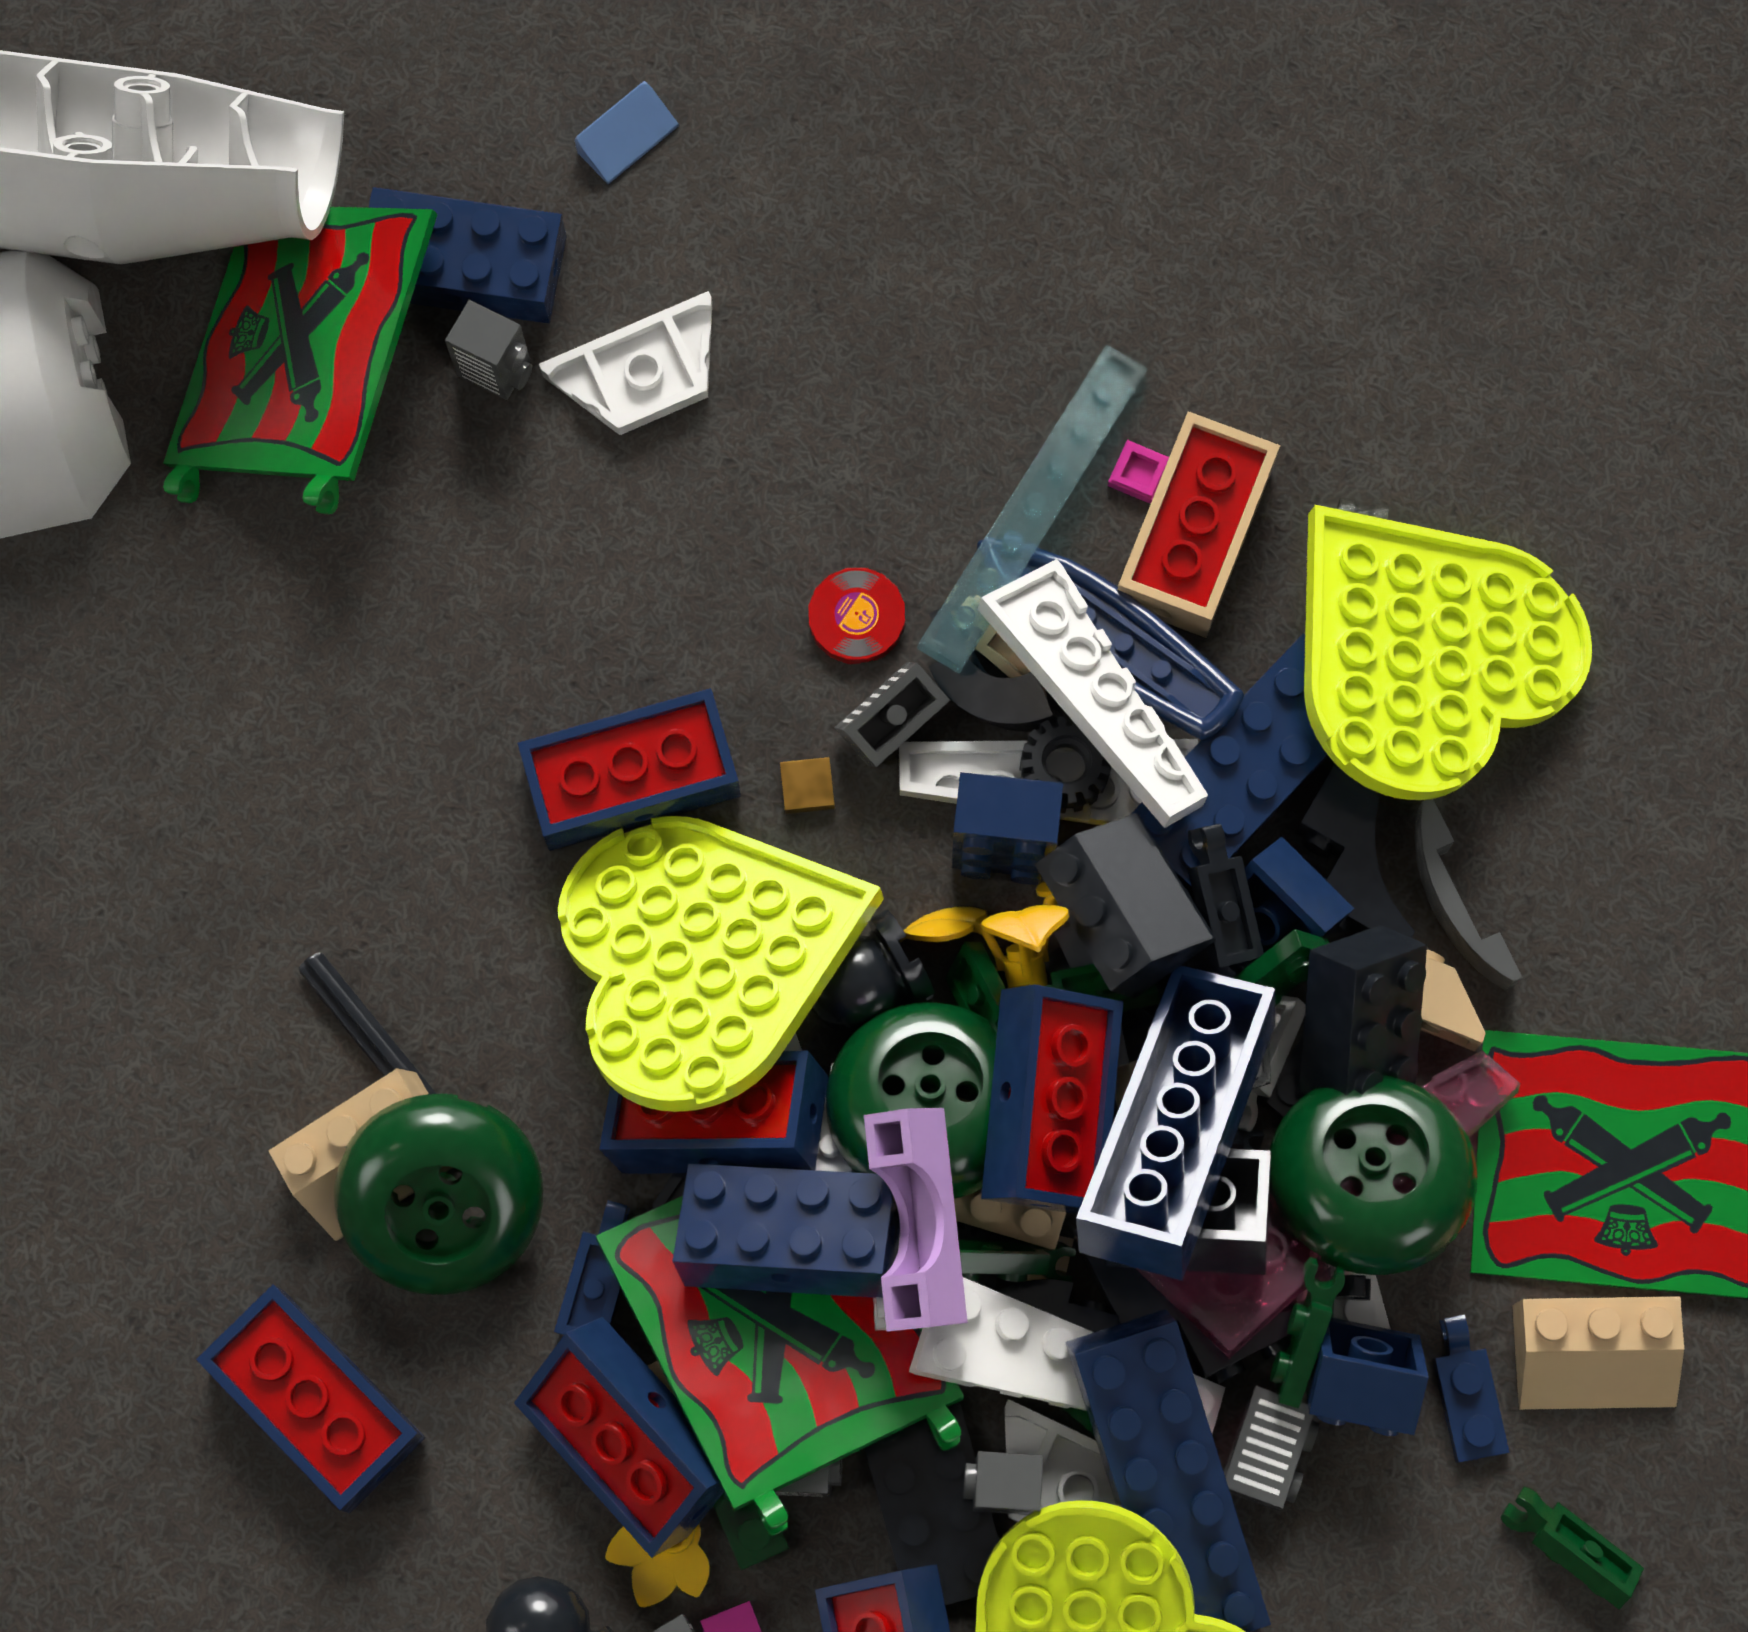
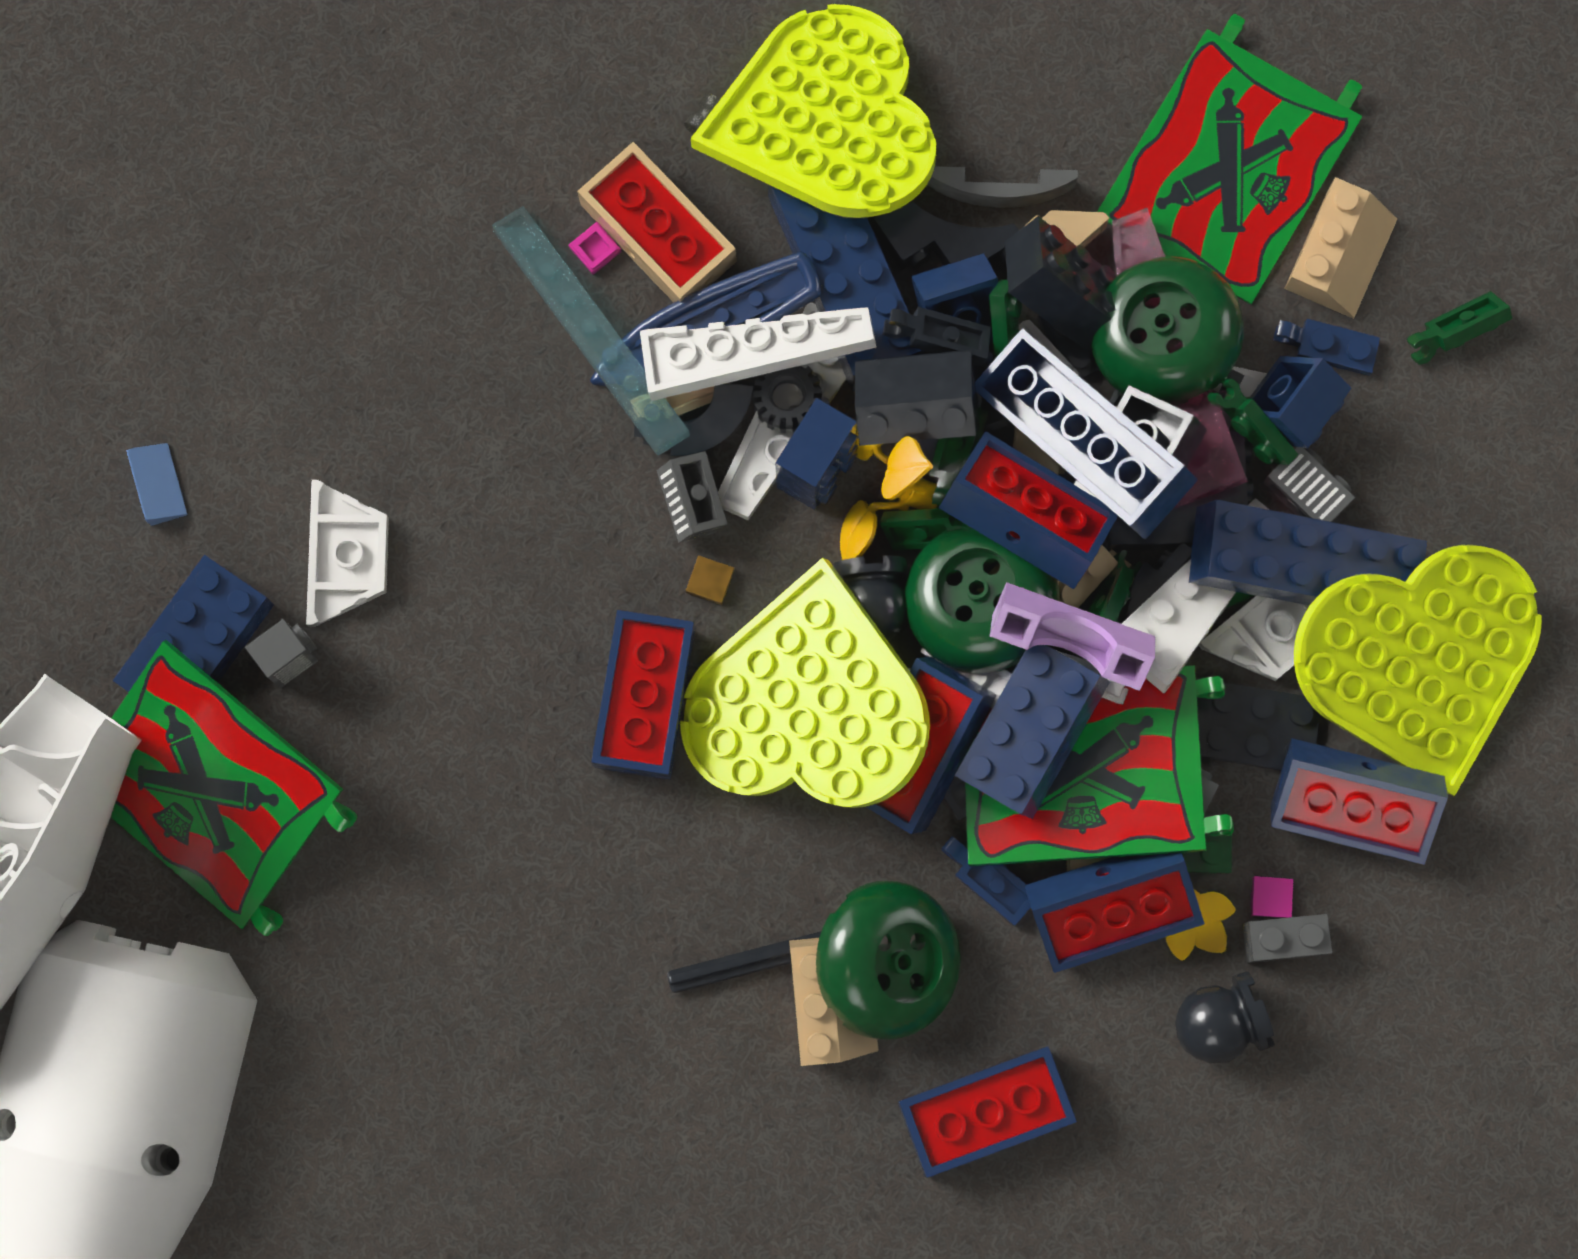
camera: 65 degrees left, 5 degrees up
(856, 615) = (603, 489): red tile -> none
(1004, 1483) = (1262, 666): dark grey brick -> none

